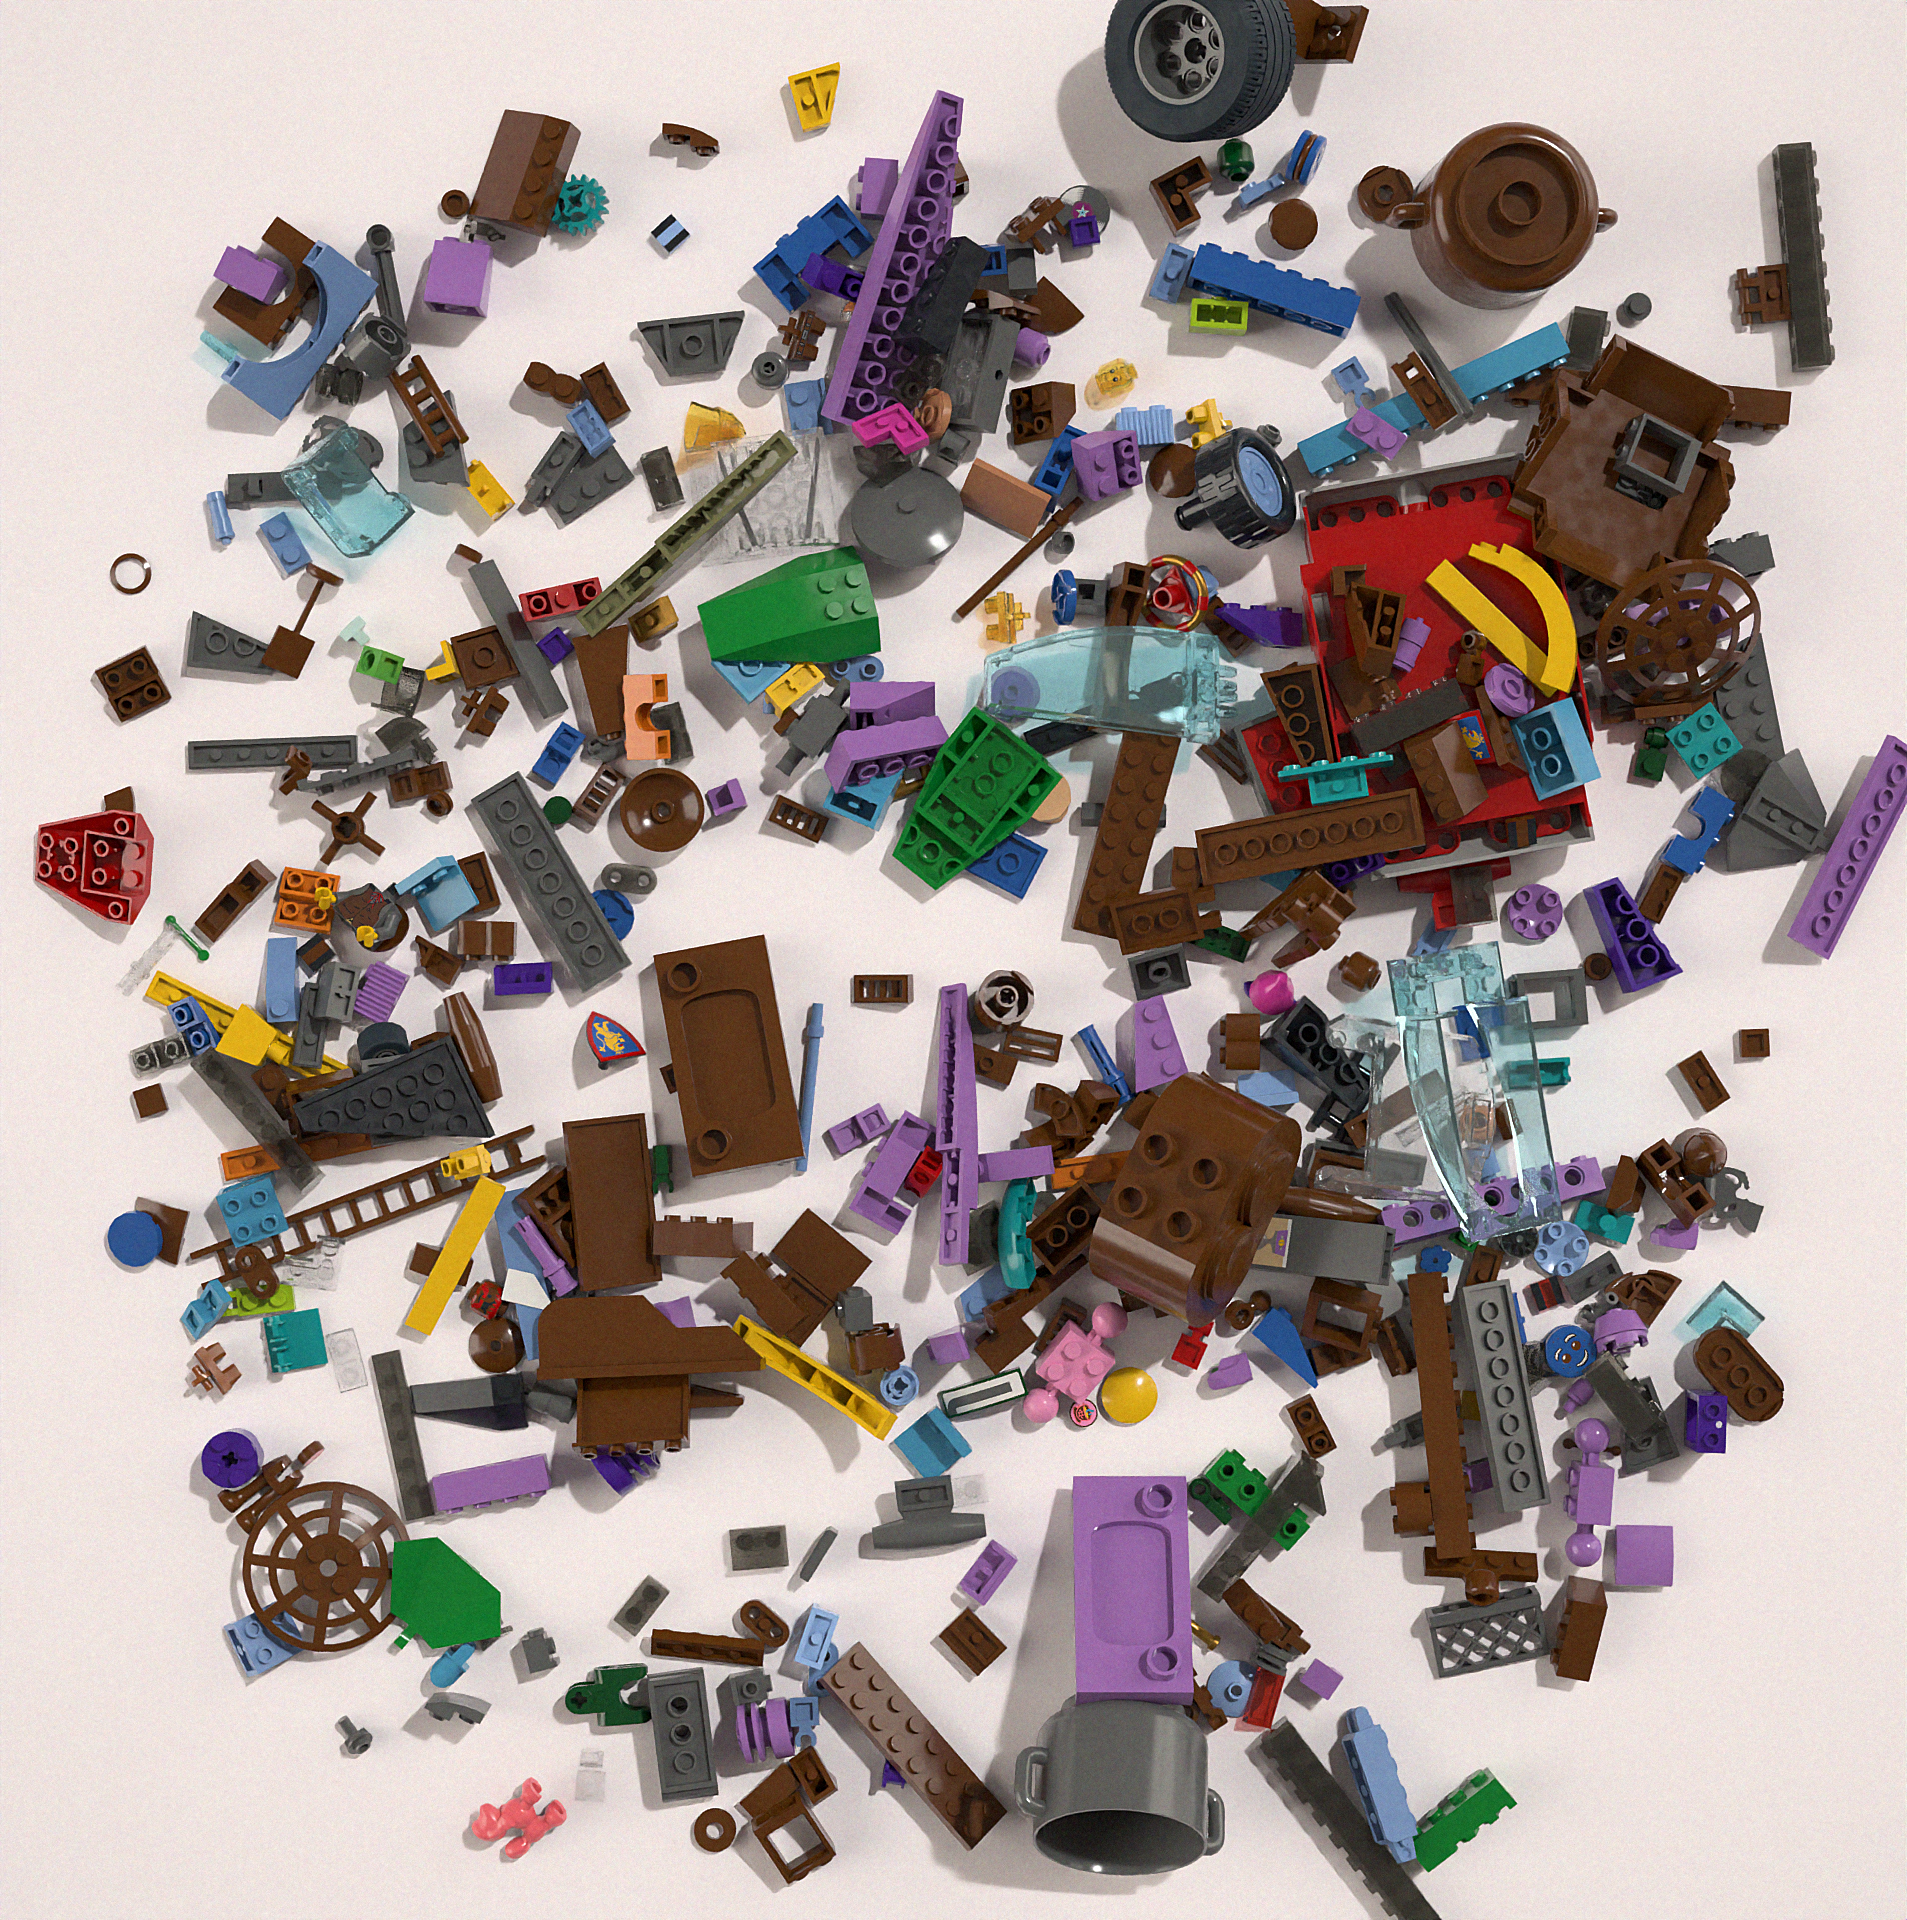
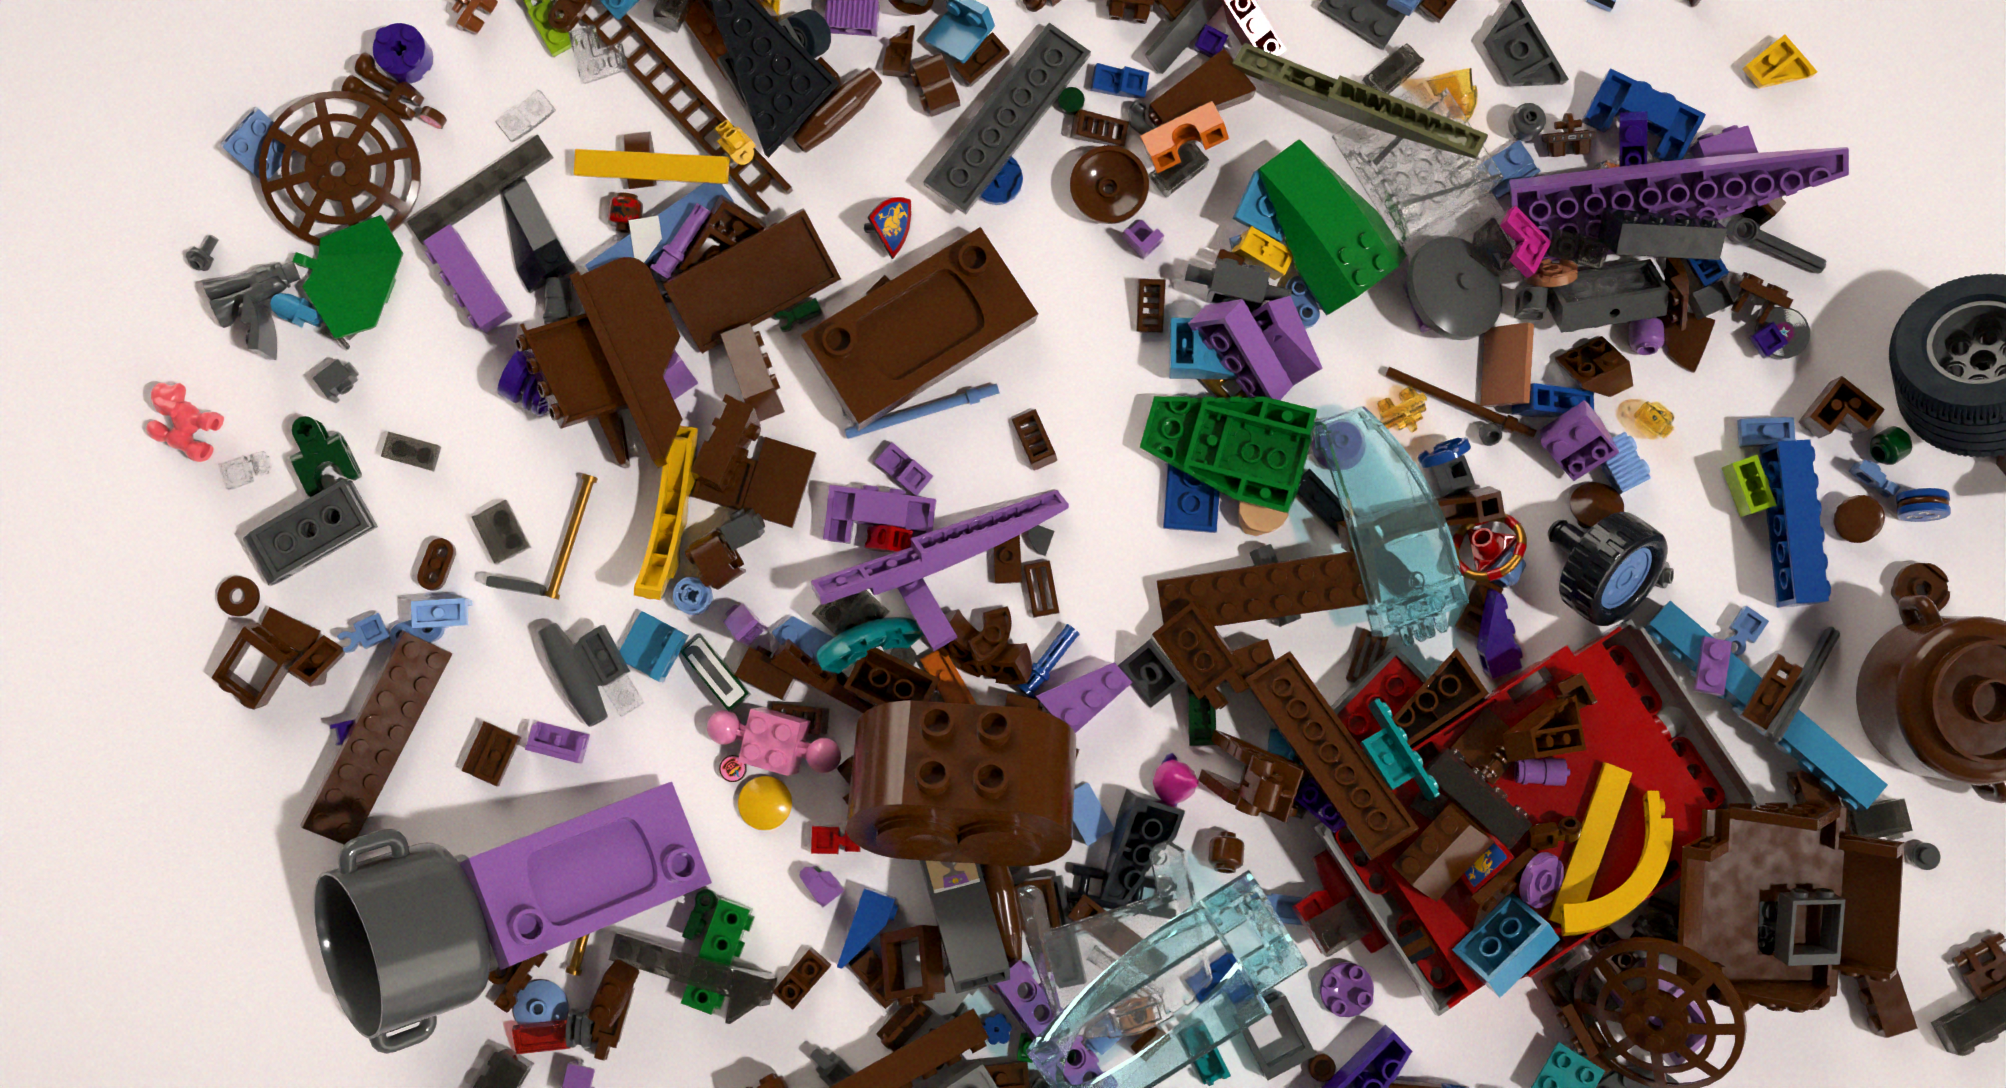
camera: 70 degrees right, 5 degrees down
(295, 1340) = (525, 66): teal hinge -> none
(411, 1690) = (260, 284): none -> dark grey piece
(511, 1342) = (587, 249): reddish brown dish -> none
(523, 978) = (913, 129): dark purple hinge -> none
(629, 878) = (1038, 184): clear smoke plate -> none
(654, 619) = (1270, 113): pearl gold slope -> none
(707, 1647) = (395, 523): reddish brown plate -> none
(740, 1680) = (385, 578): dark grey brick -> none
(765, 1730) = (340, 601): medium lavender wheel -> none
(791, 1481) = (570, 536): none -> pearl gold bar
(993, 181) = (1774, 244): none -> dark grey axle
(1000, 985) = (1081, 540): reddish brown brick -> none
(1209, 423) = (1656, 511): yellow hips -> none
(1242, 1041) = (1119, 772): reddish brown brick -> none
(1259, 1301) = (895, 884): reddish brown plate -> none
(1651, 763) = (1525, 1039): dark green plate -> none
(1748, 555) = (1759, 1052): dark grey slope -> none

